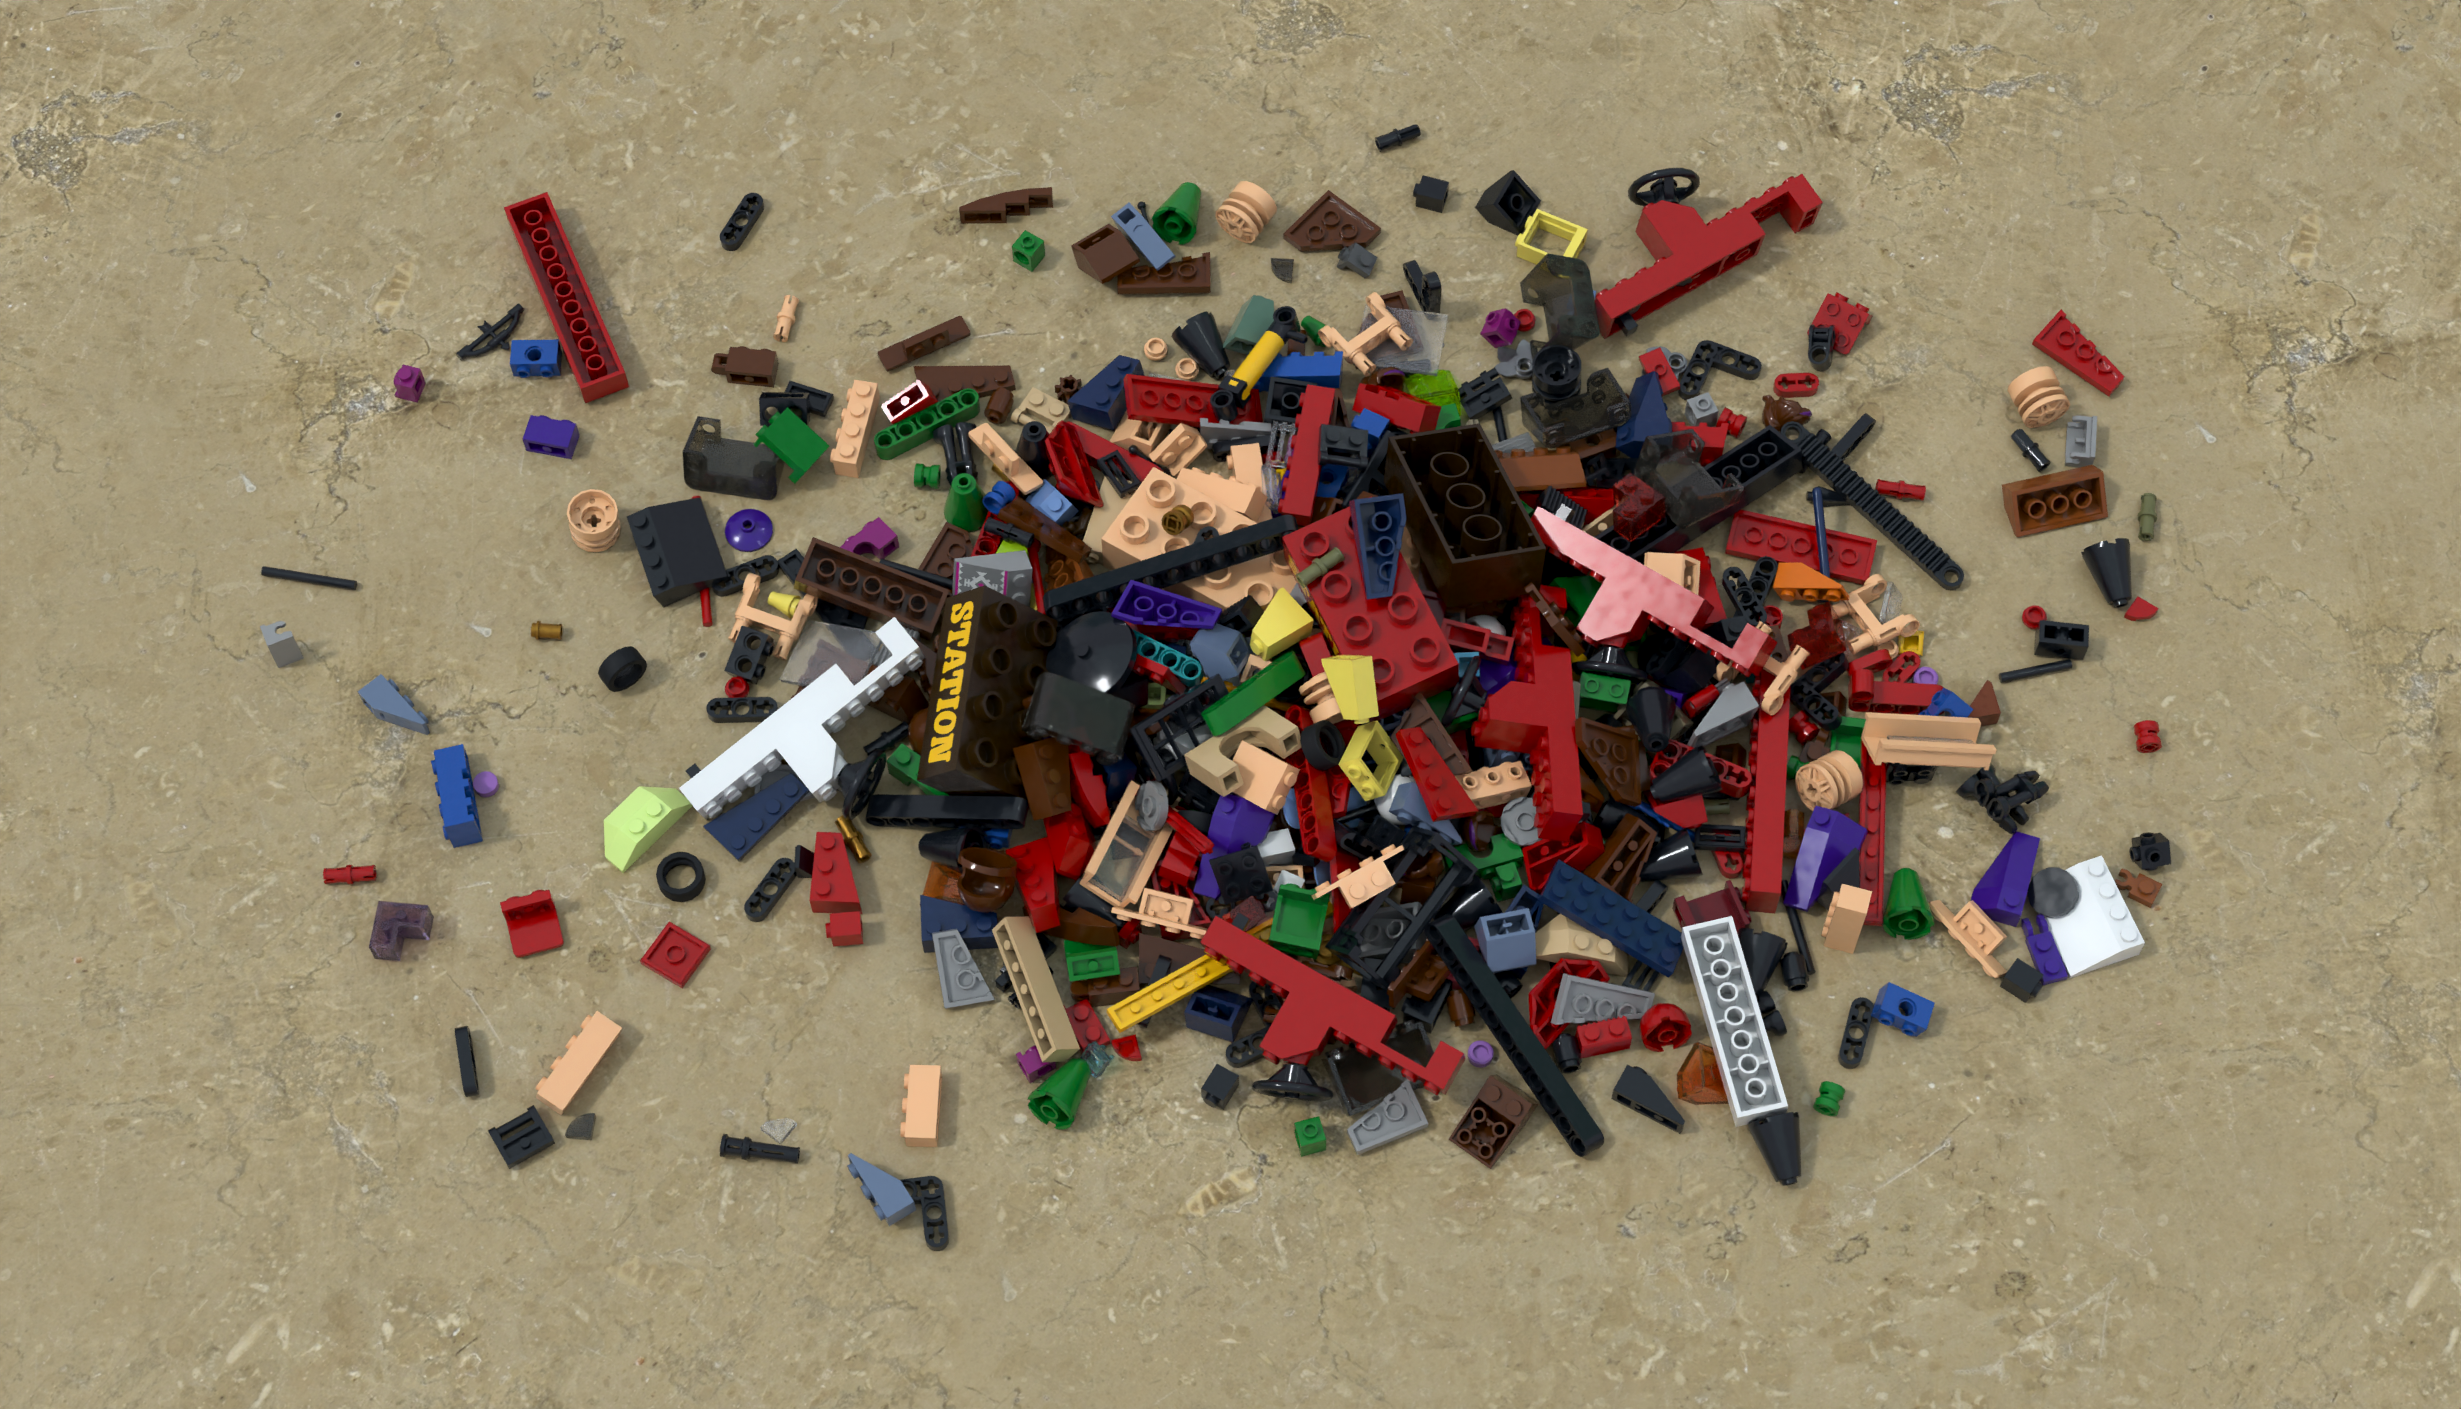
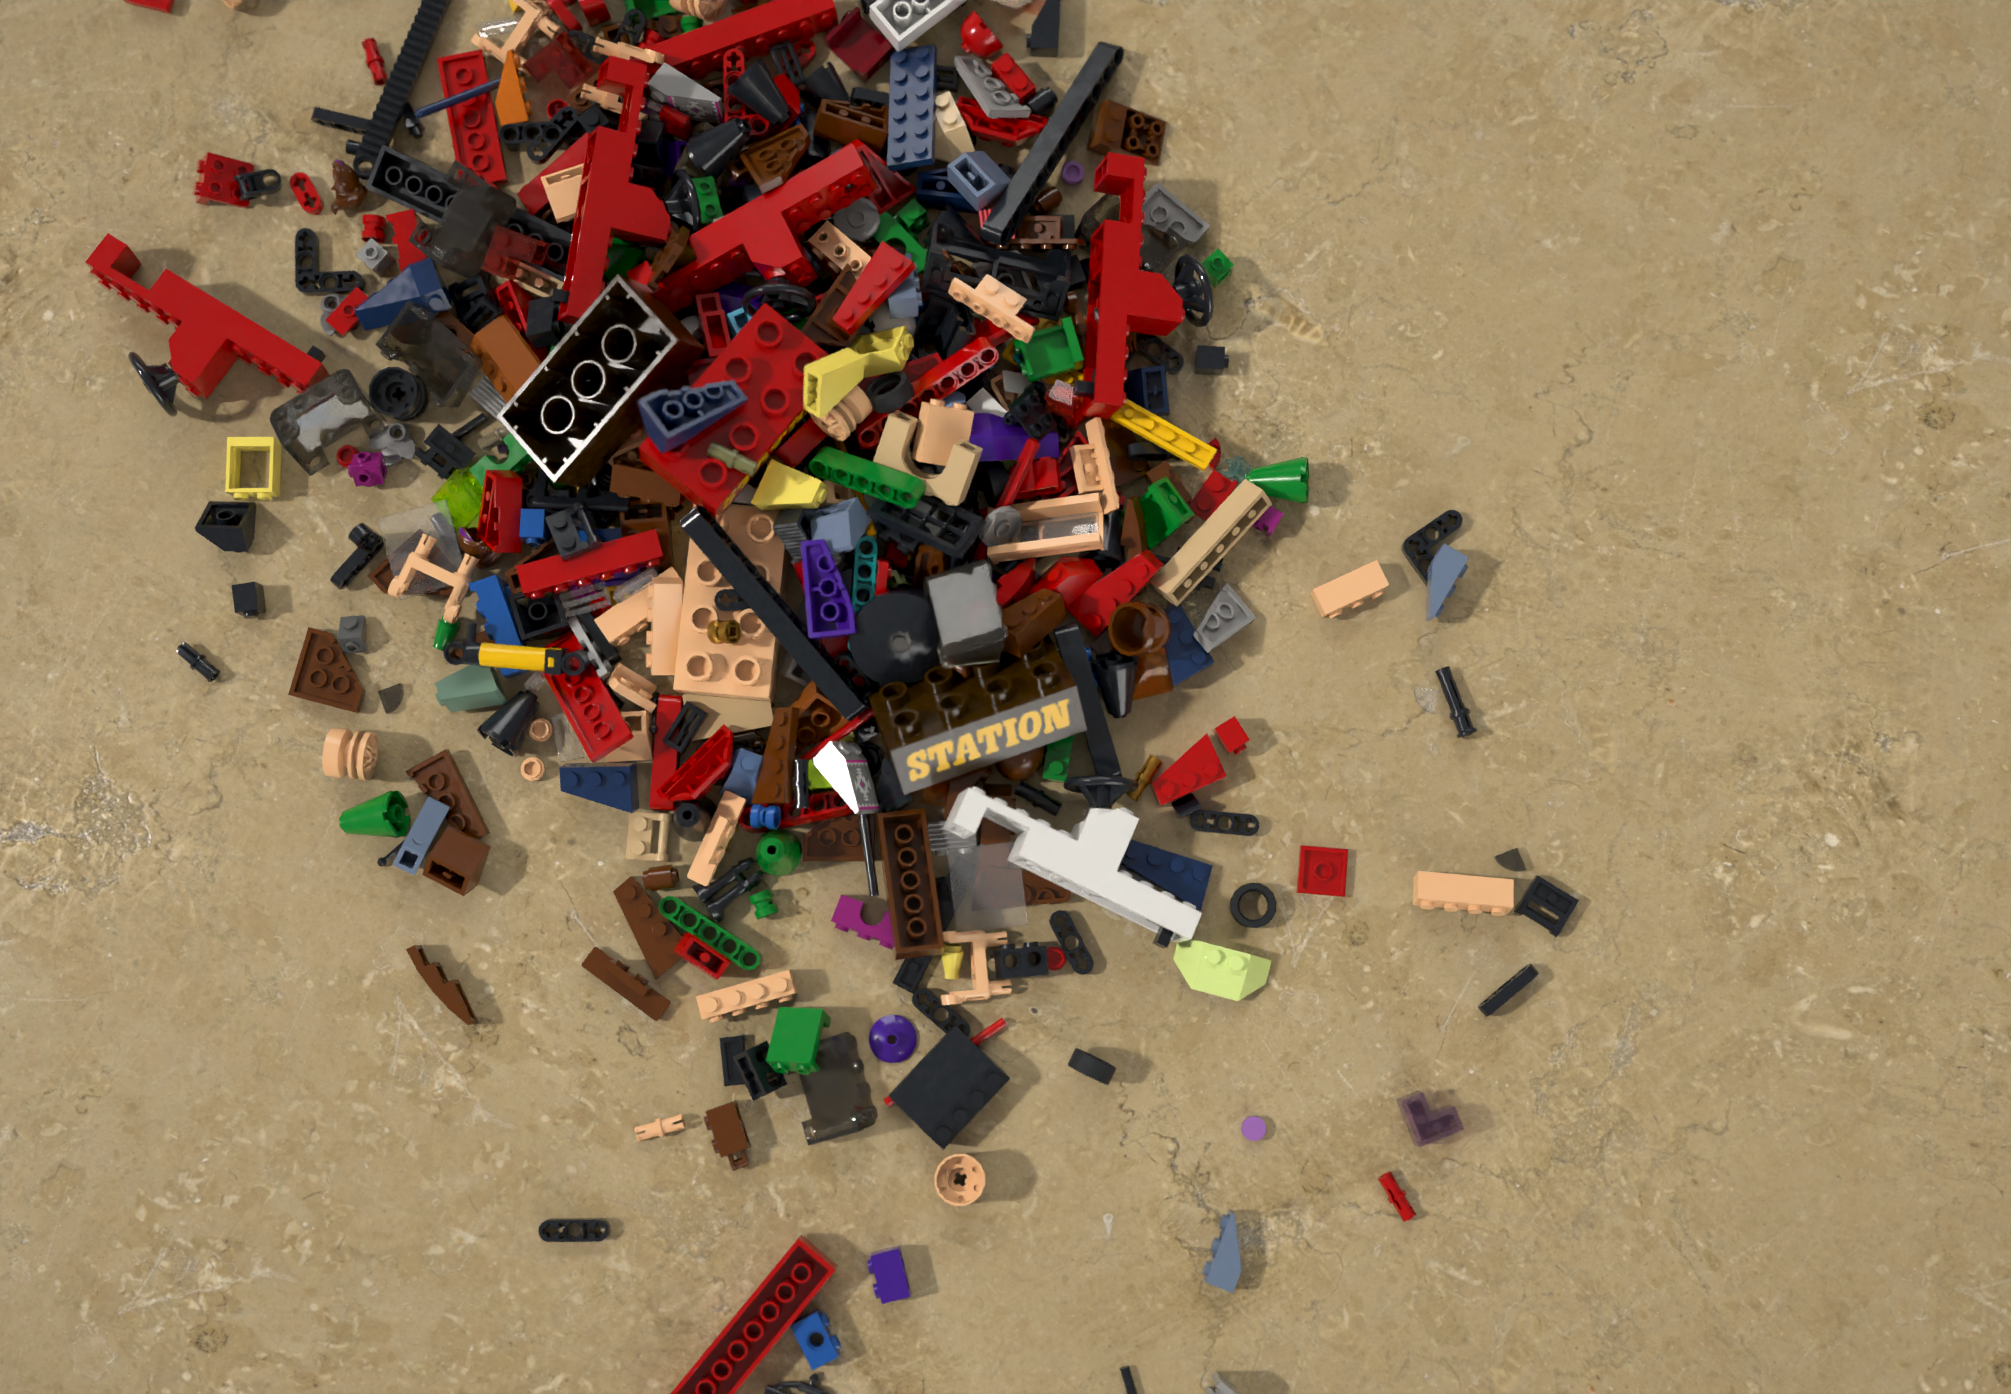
camera: 115 degrees left, 20 degrees up
(457, 796) = (1281, 1144): blue wedge -> none
(532, 923) = (1362, 1005): red bracket -> none
(543, 630) = (1083, 1162): pearl gold pin -> none
(1028, 251) = (483, 937): green brick -> none
(1067, 388) = (606, 825): reddish brown gear -> none

